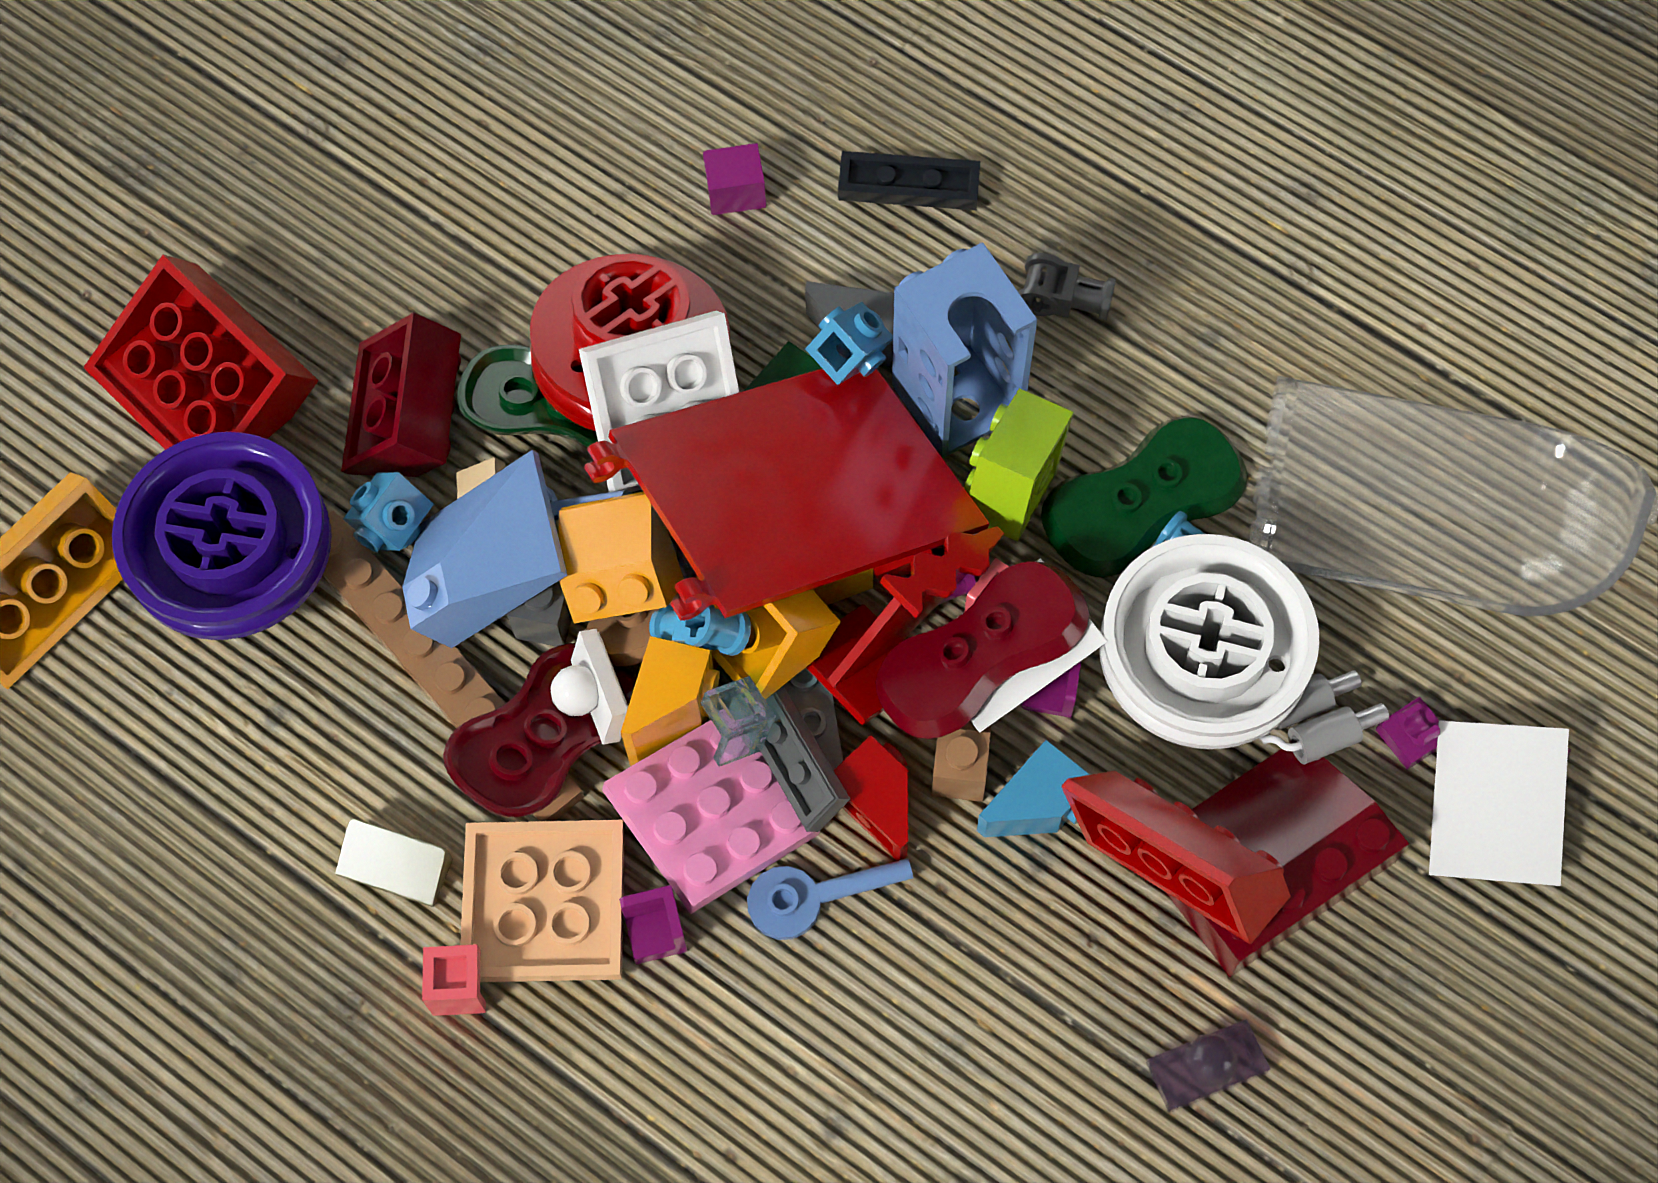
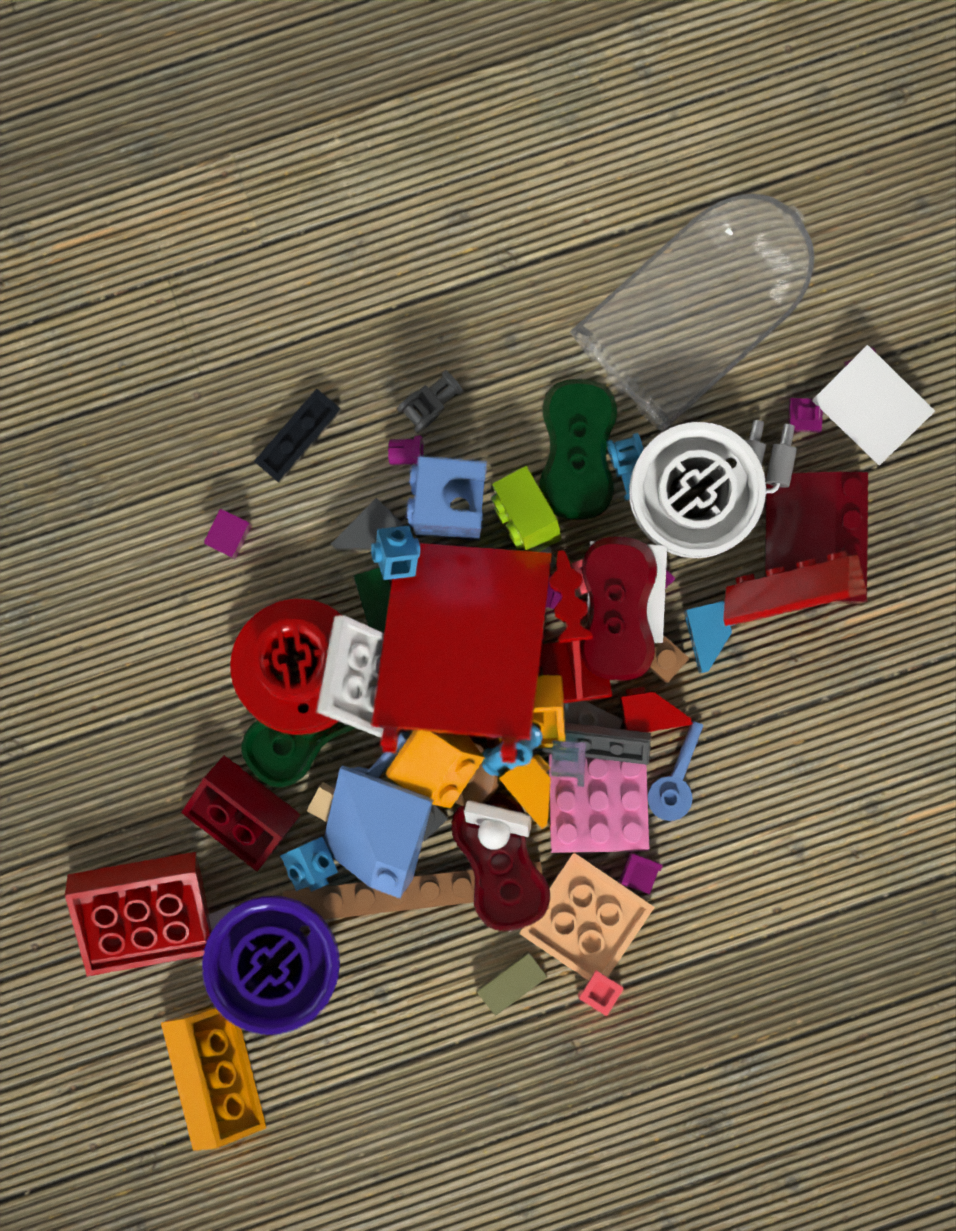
camera: 65 degrees left, 20 degrees up
(1207, 1066) = (896, 649): clear purple tile -> none

